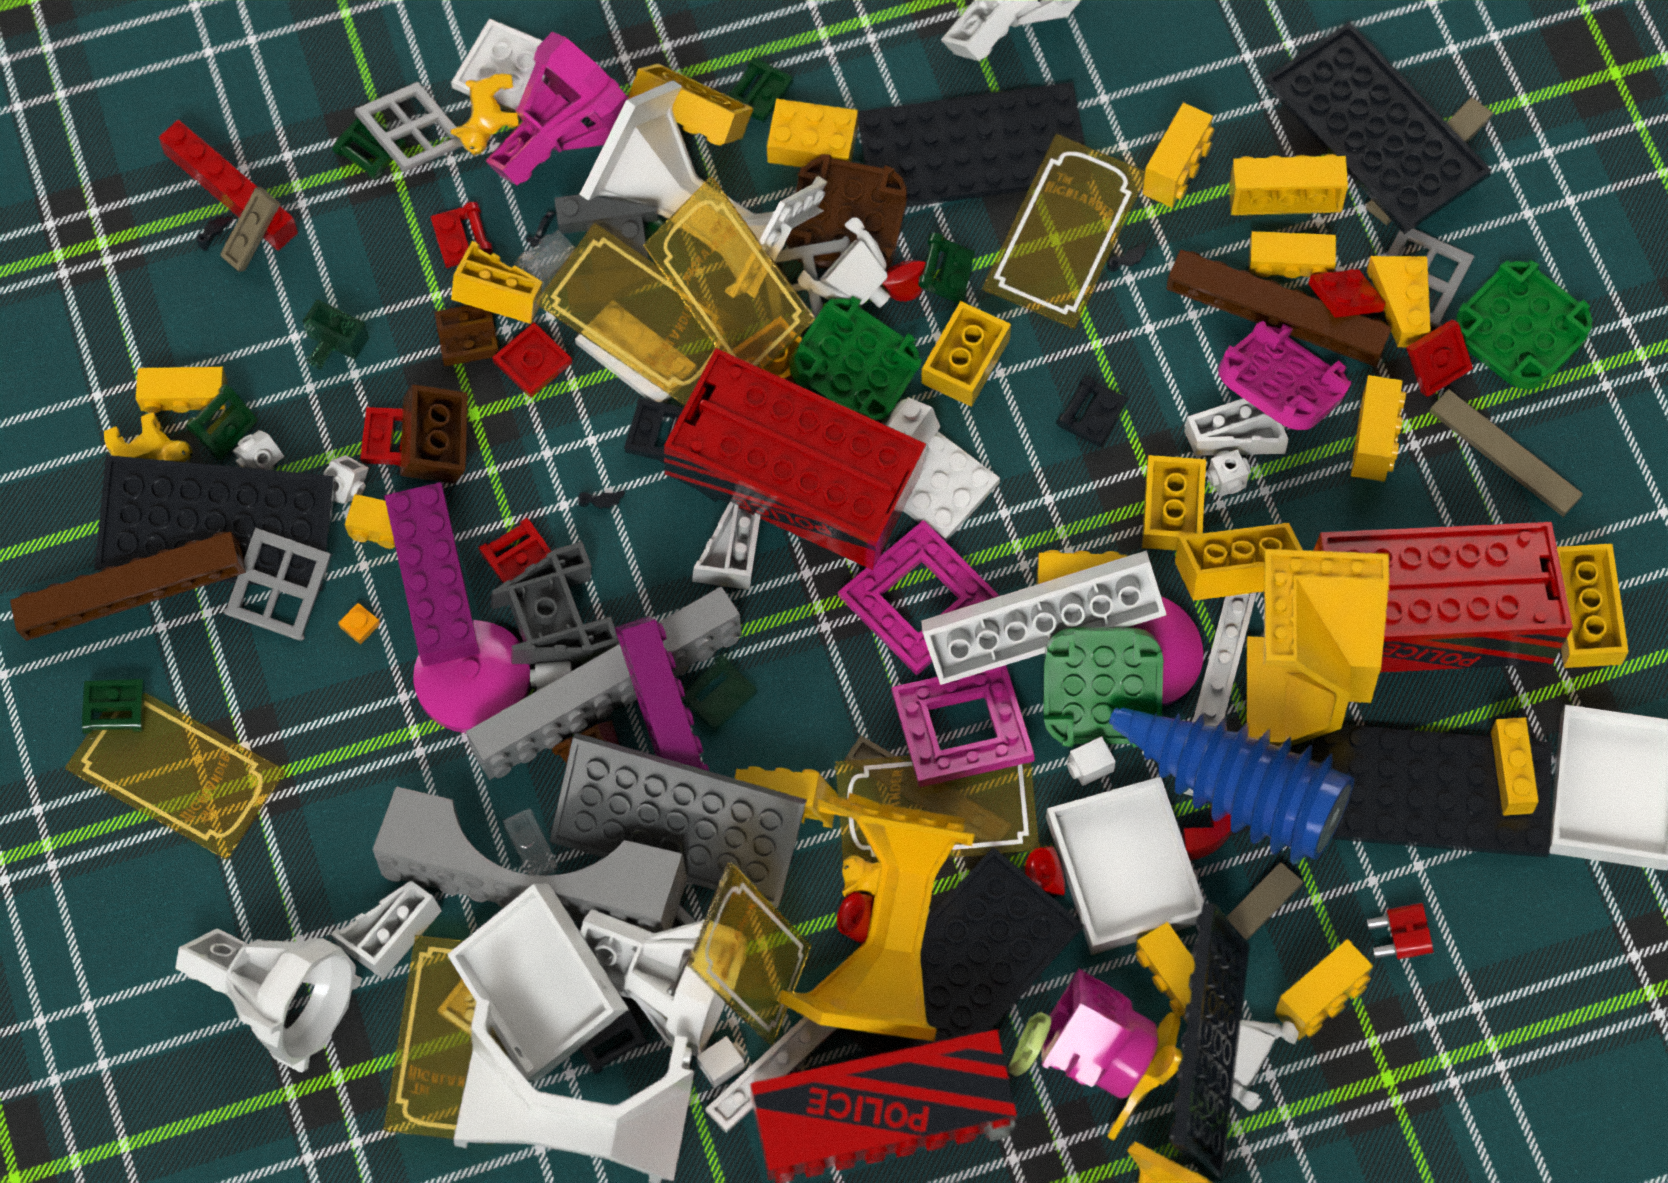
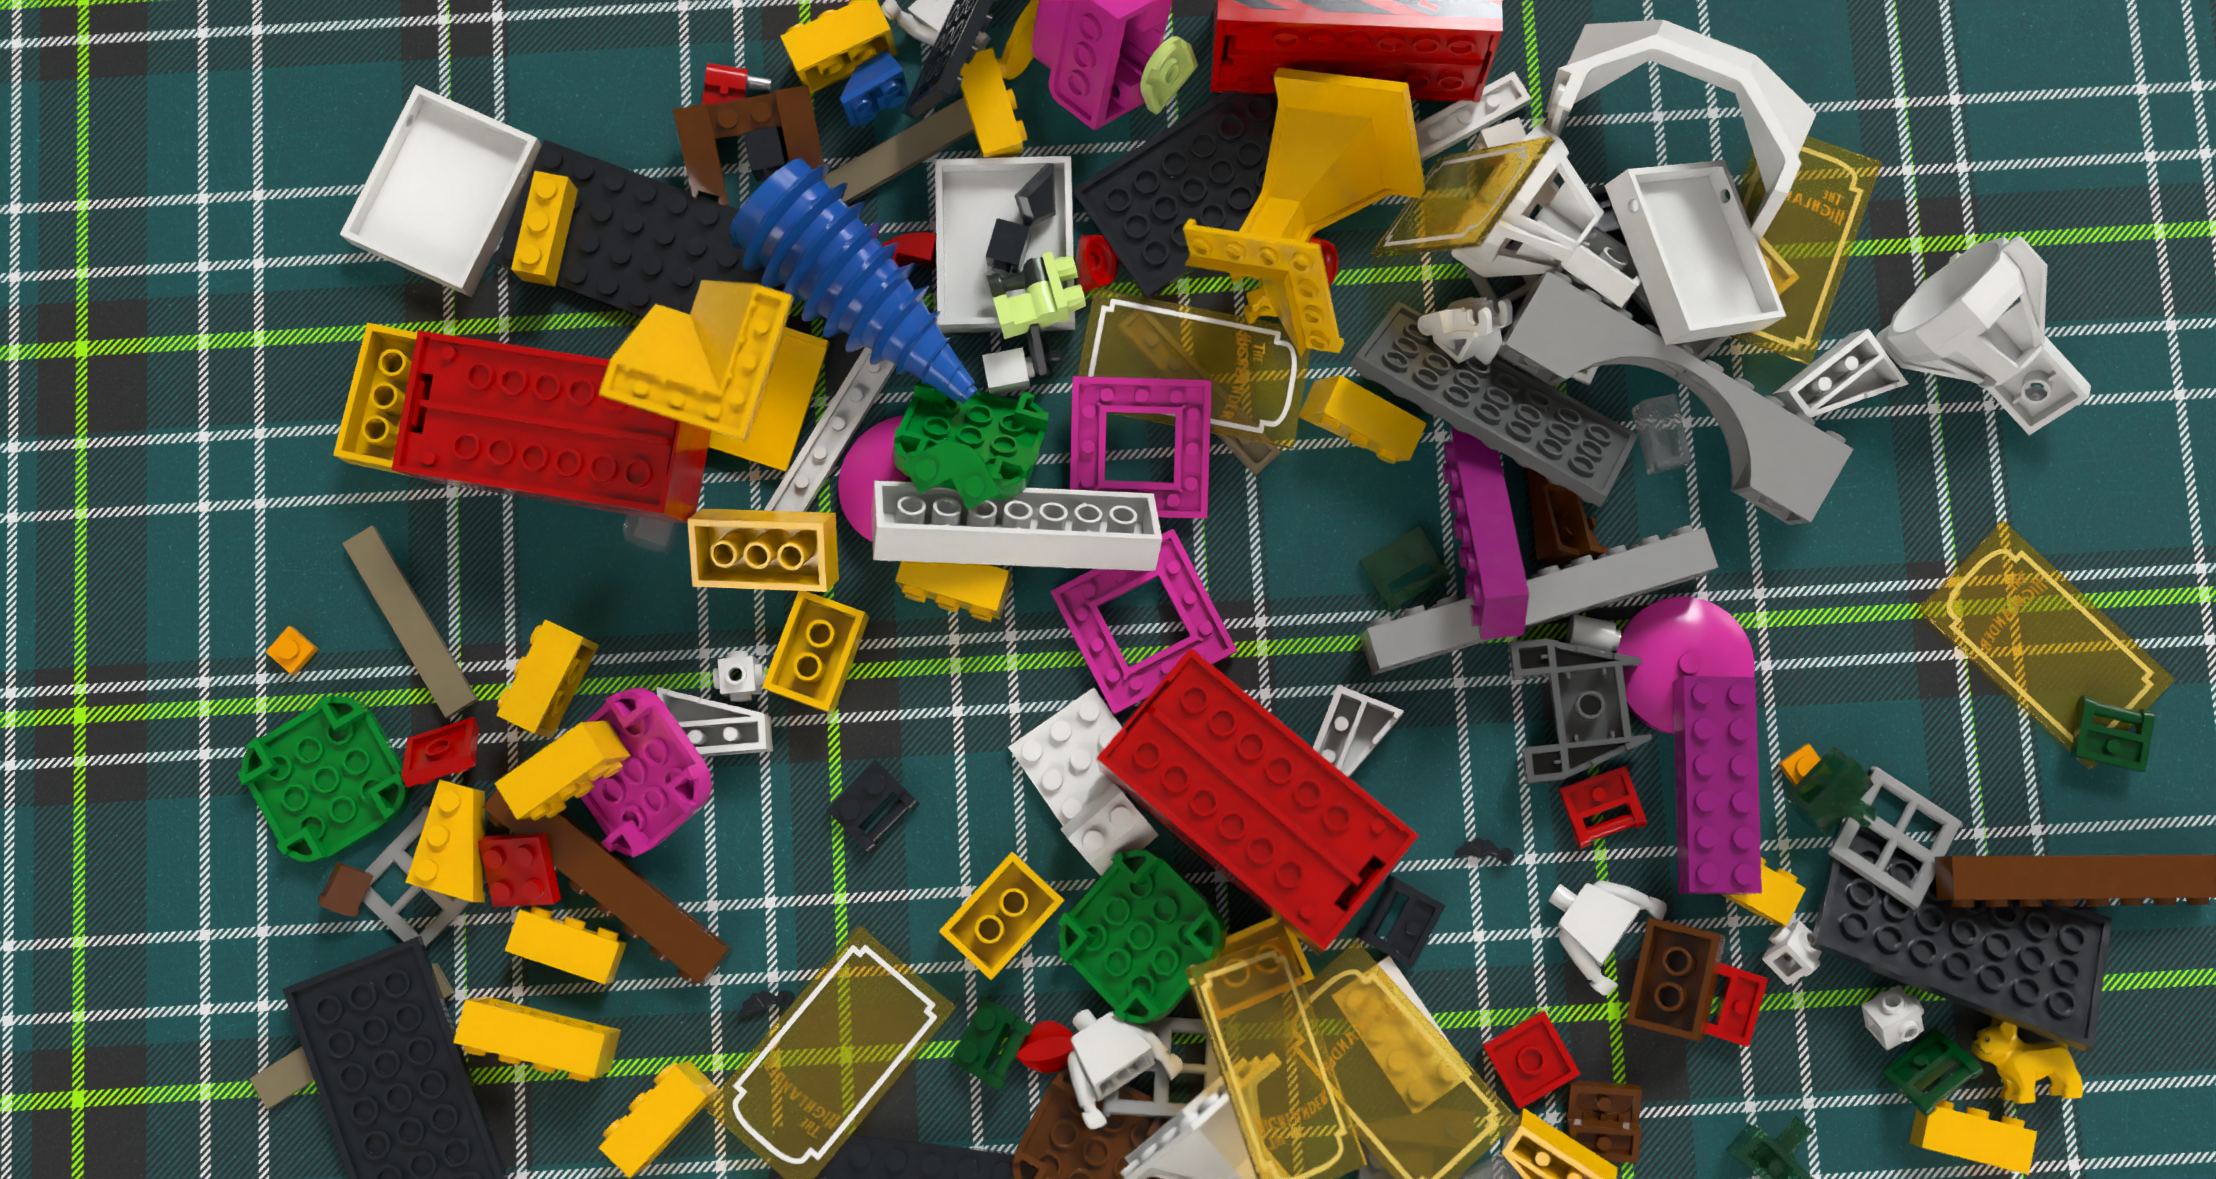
camera: 165 degrees left, 15 degrees up
(335, 600) = (1832, 791): none -> clear green brick
(501, 466) = (1597, 922): none -> white torso
(705, 878) = (1468, 328): none -> white piece
(1065, 779) = (1040, 354): none -> black piece
(1077, 814) = (1044, 296): none -> yellowish green hips
(1109, 904) = (1037, 197): none -> black piece
(1113, 632) = (956, 462): none -> green plate
(1122, 856) = (1008, 247): none -> black brick
(1282, 965) = (873, 87): none -> blue slope
(1333, 352) = (563, 770): none -> yellow brick
(1354, 887) = (765, 152): none -> black brick
(1415, 889) = (704, 124): none -> reddish brown wedge
(1474, 248) = (345, 889): none -> reddish brown tile
(1589, 409) = (292, 650): none -> light orange plate

